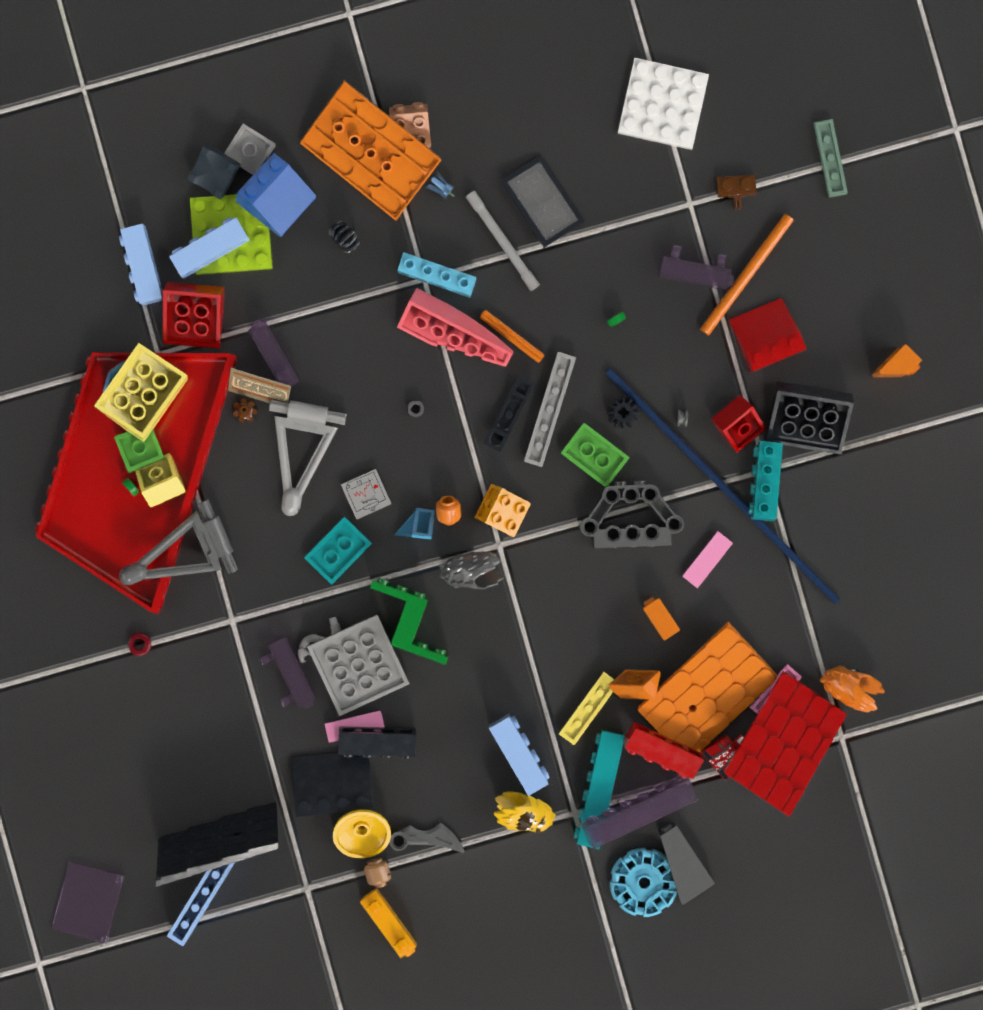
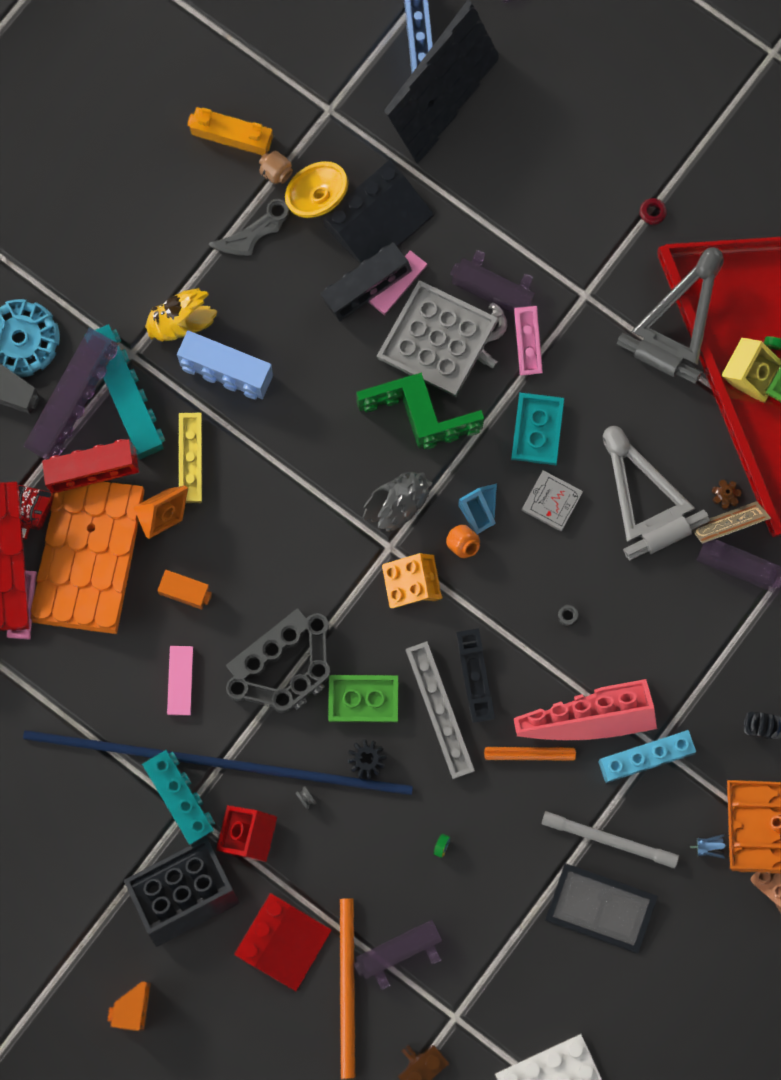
camera: 145 degrees right, 10 degrees down
(297, 616) = (528, 340): none -> bright pink tile

